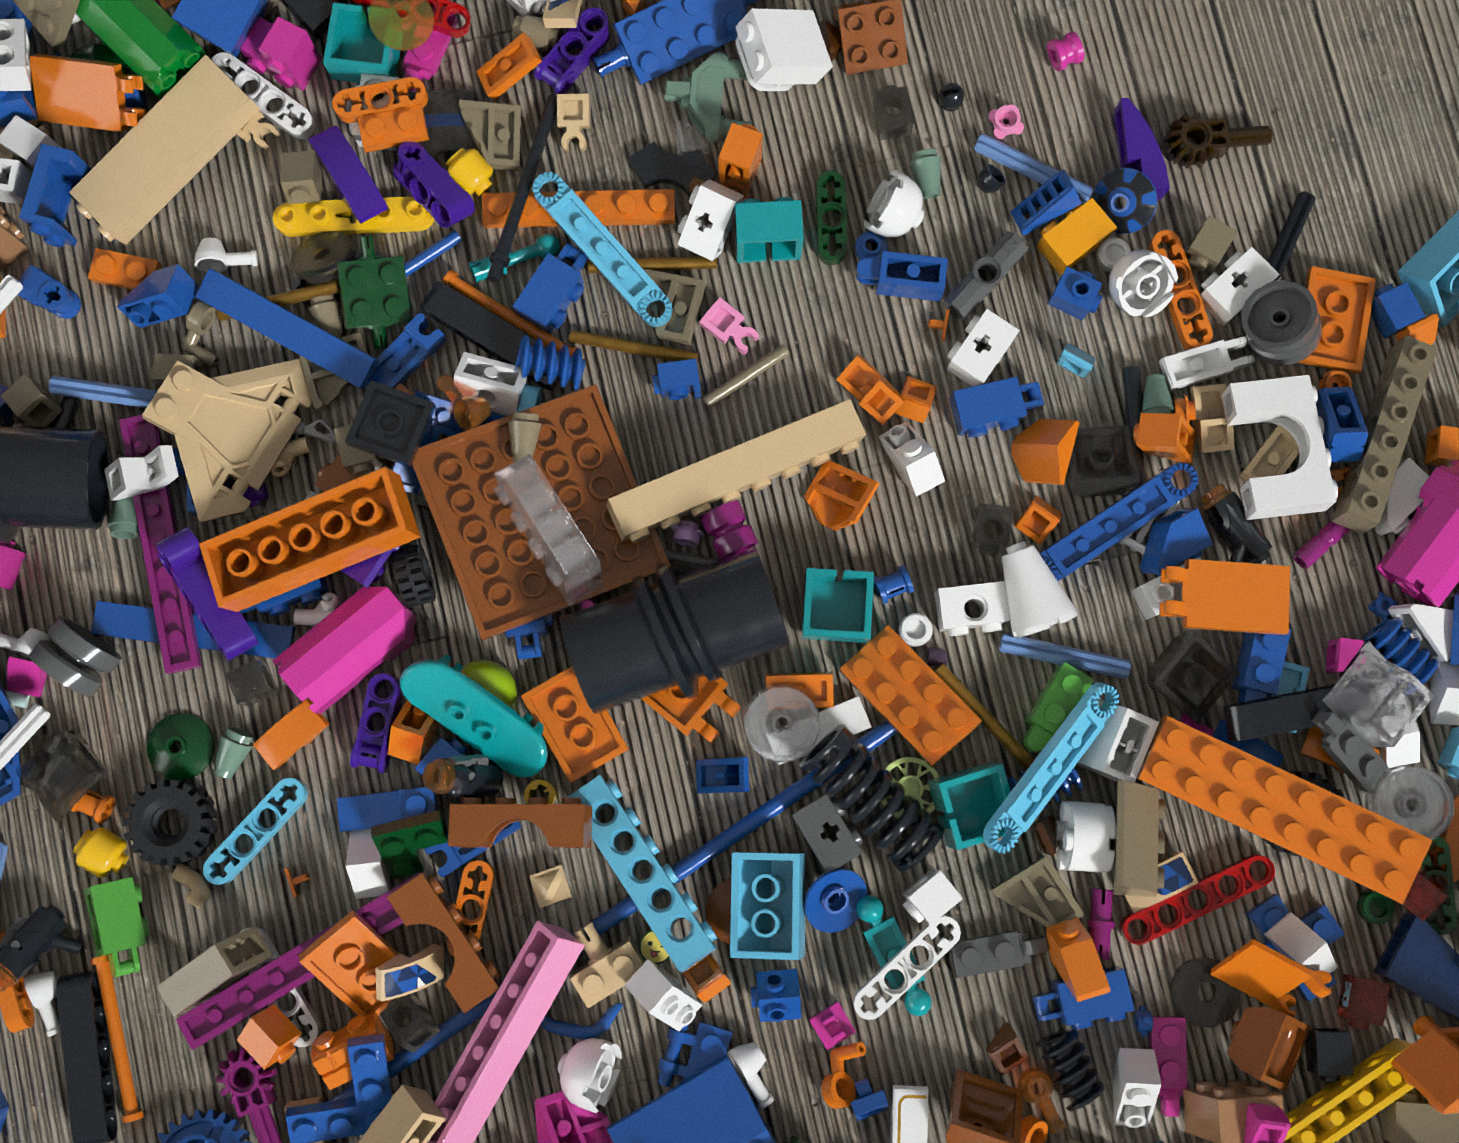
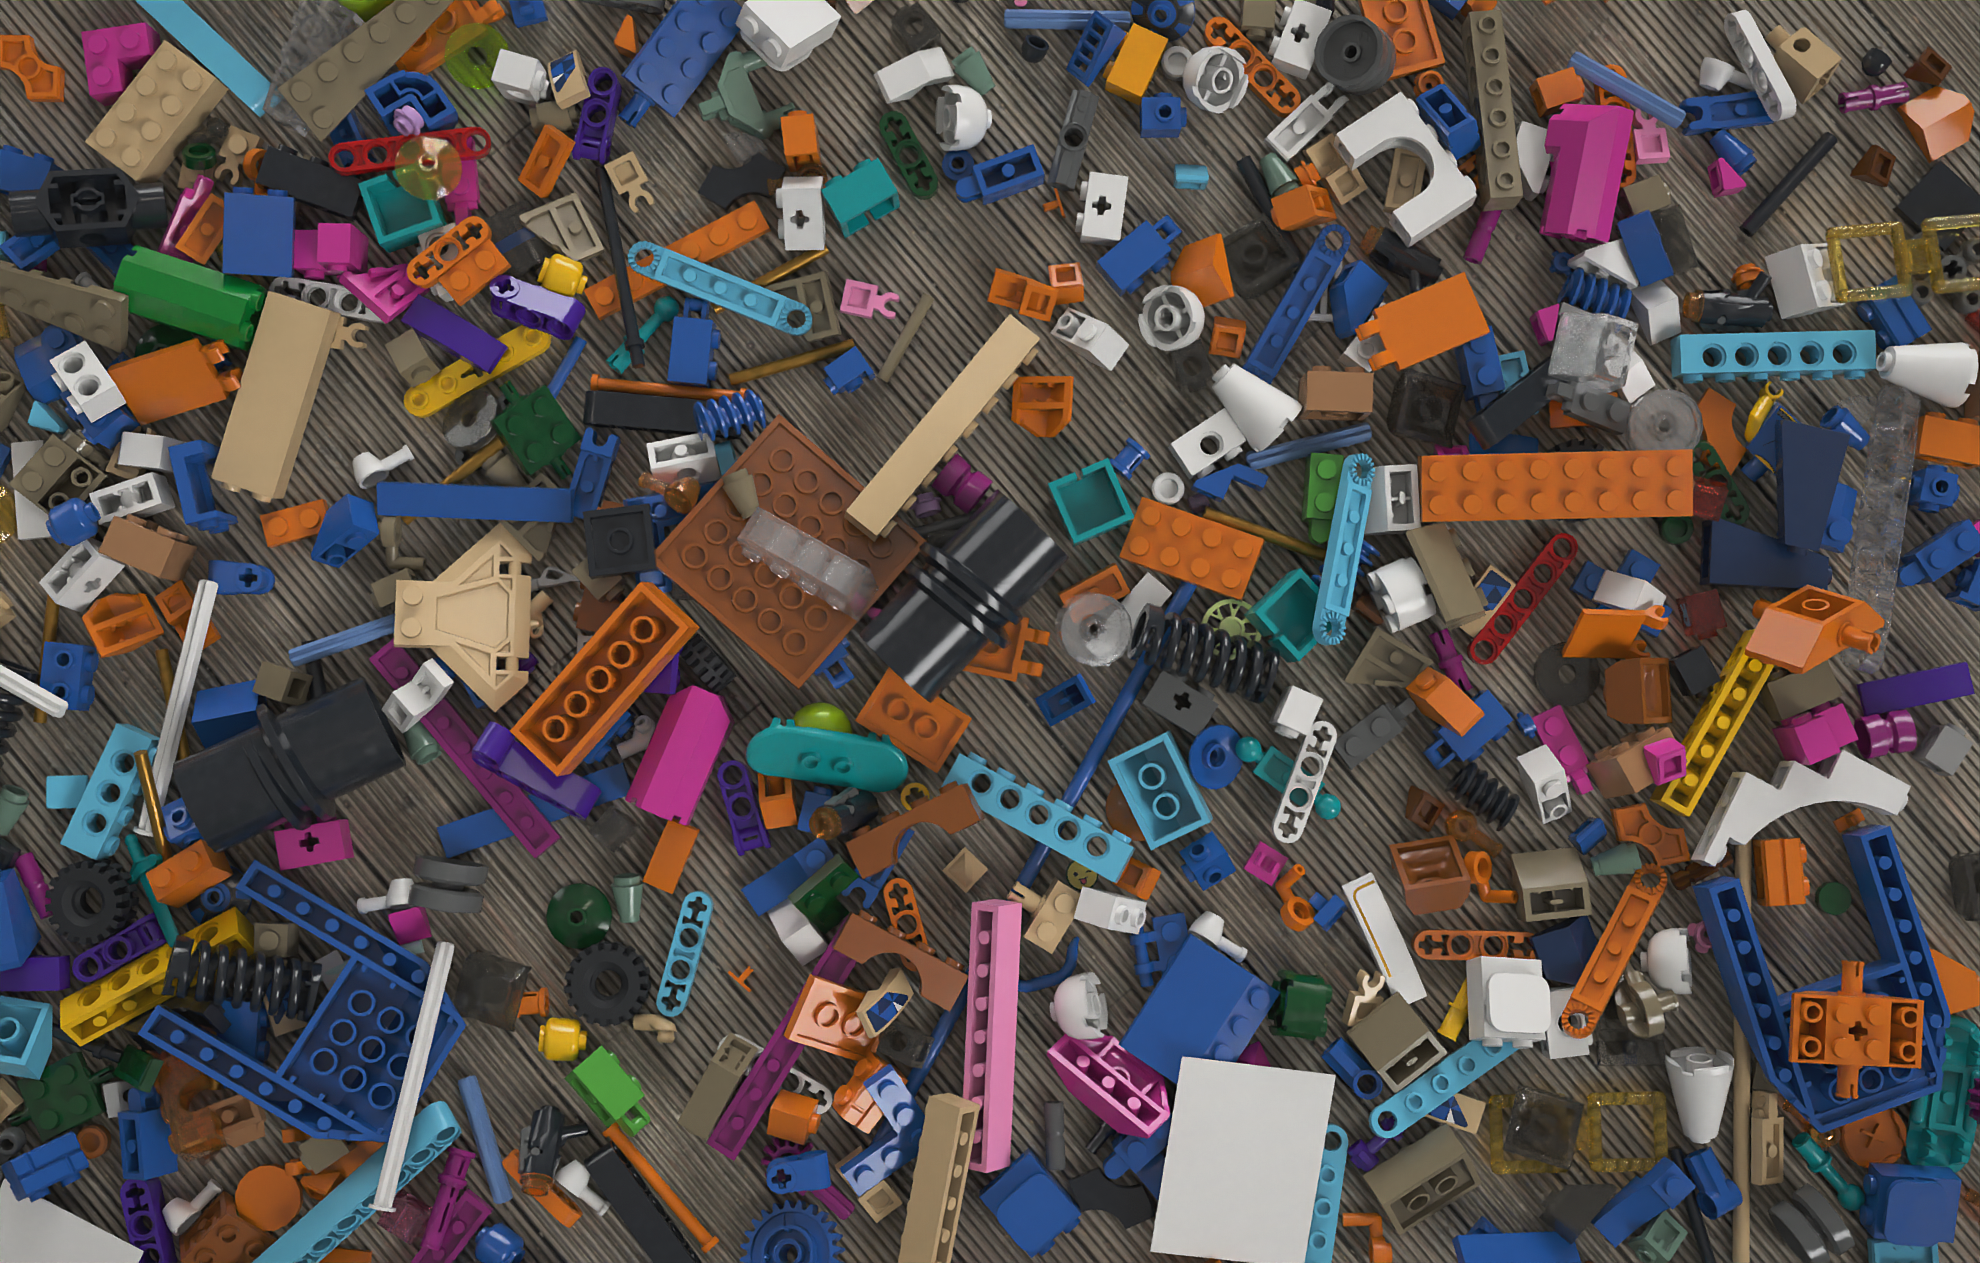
camera: 30 degrees left, 5 degrees up
(249, 1095) = (804, 1172): none -> blue piece
(306, 106) = (383, 290): none -> dark pink wing
(869, 147) = (912, 73): none -> white slope
(961, 648) = (1216, 484): none -> blue slope
(996, 475) = (1171, 317): none -> white cylinder
(1114, 620) = (1336, 394): none -> medium nougat brick

